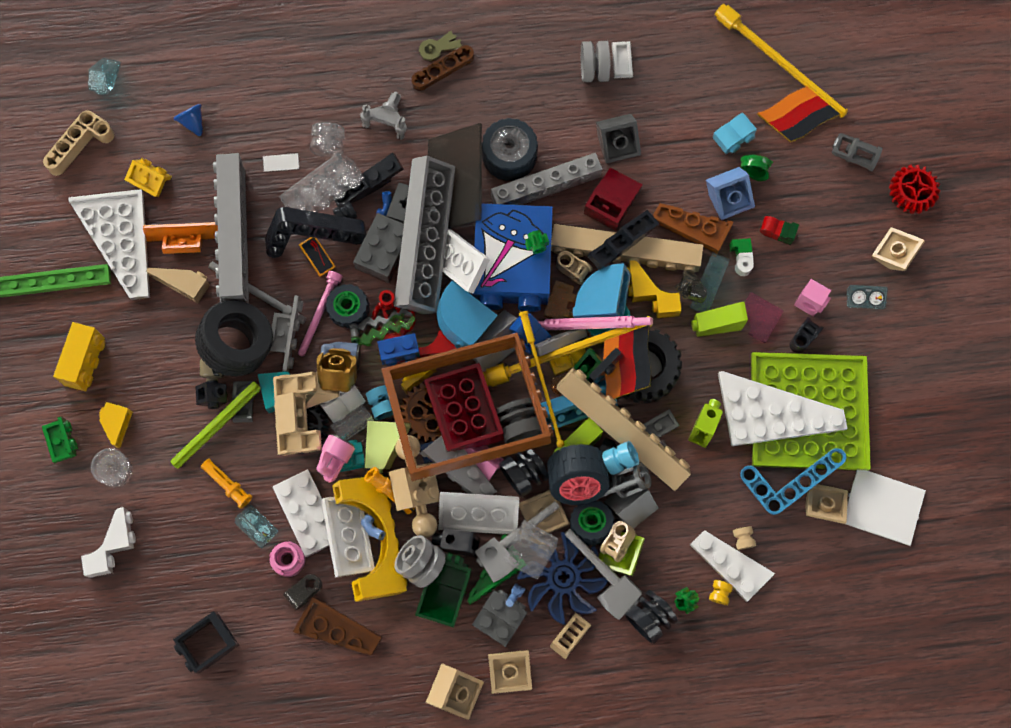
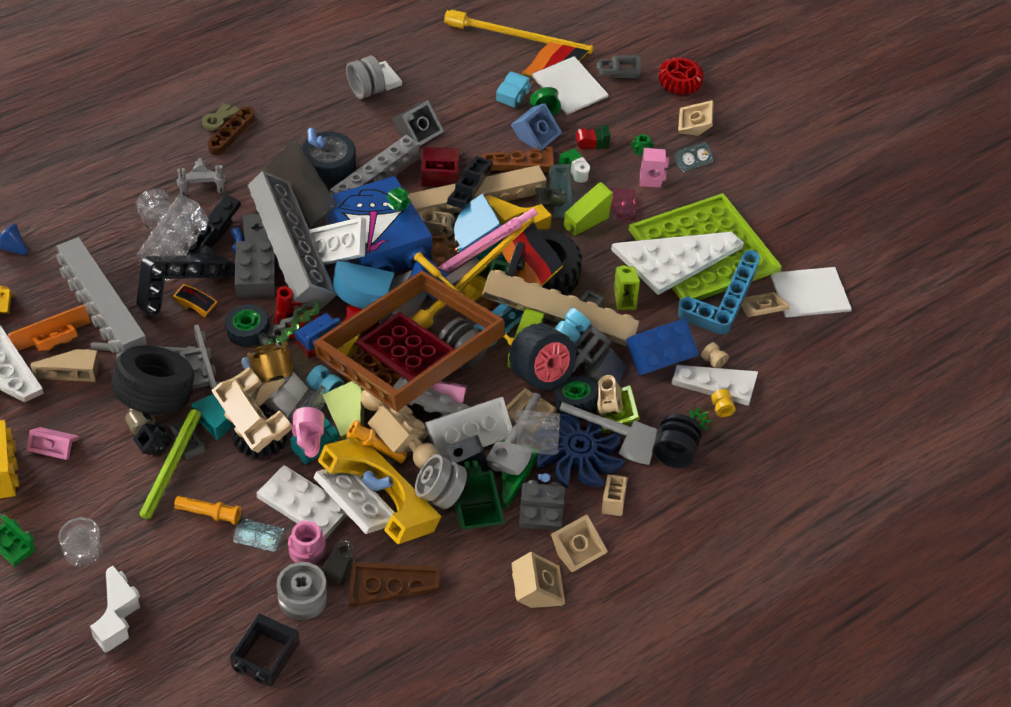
camera: 30 degrees left, 25 degrees down
(115, 422) = (61, 501): yellow slope -> none
(134, 352) = (50, 442): none -> bright pink panel
(270, 608) = (302, 591): none -> light grey wheel
(281, 162) = (117, 247): white sticker -> none
(333, 279) = (221, 310): bright pink piece -> none
(500, 129) = (314, 140): none -> medium blue arm
(523, 471) = (491, 377): black wheel -> none
(697, 510) = (662, 346): none -> blue brick
(796, 151) = (574, 84): none -> white piece
(806, 333) = (664, 199): black piece -> none
(825, 256) = (640, 142): none -> green gear

